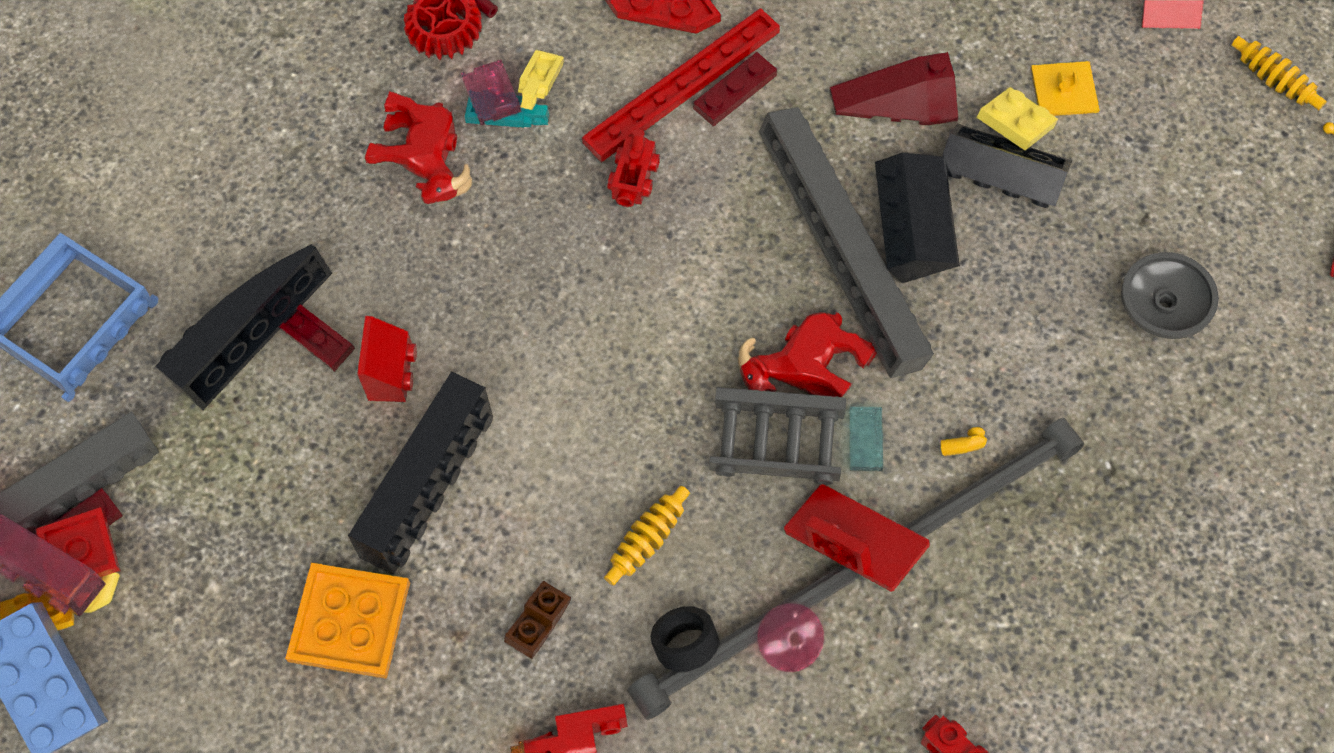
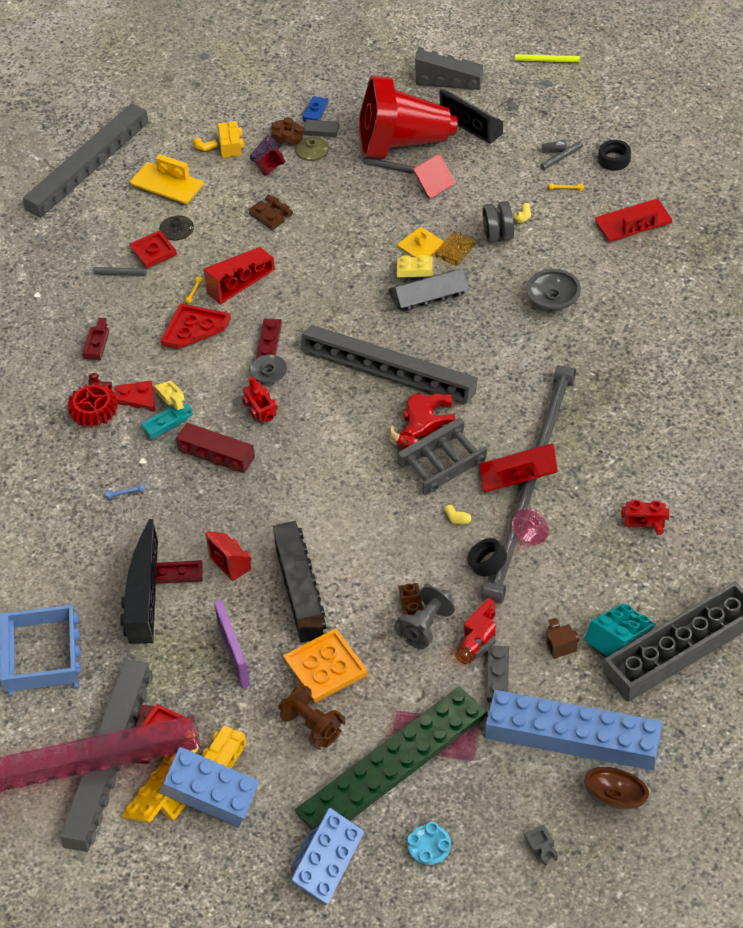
camera: 40 degrees left, 15 degrees down
(120, 637) = (226, 746): none -> yellow brick
(249, 698) = (323, 726): none -> reddish brown piece
(262, 496) = (232, 644): none -> medium lavender tile
(350, 162) = (109, 494): none -> medium blue hinge
(426, 147) = (144, 459): red animal -> none
(491, 92) = (155, 413): clear pink plate -> none
(506, 664) = (417, 627): none -> dark grey piece
(510, 45) = (136, 395): none -> red wing
(521, 195) = (215, 447): none -> dark red brick
(647, 535) = (425, 535): yellow piece -> none
(681, 84) = (242, 355): red plate -> none
(690, 120) = (268, 368): none -> dark grey dish
(714, 541) = (457, 517): none -> light yellow arm
(865, 439) = (480, 434): clear light blue tile -> none
(911, 90) = (353, 287): dark red wedge -> none
(916, 215) = (412, 331): black slope -> none
(974, 441) = (527, 403): yellow arm -> none
(1103, 128) = (455, 248): none -> clear yellow plate
(1190, 132) = (498, 221): none -> dark grey wheel
(1244, 147) = (524, 215): none -> light yellow arm
(1279, 72) = (487, 177): yellow piece -> none

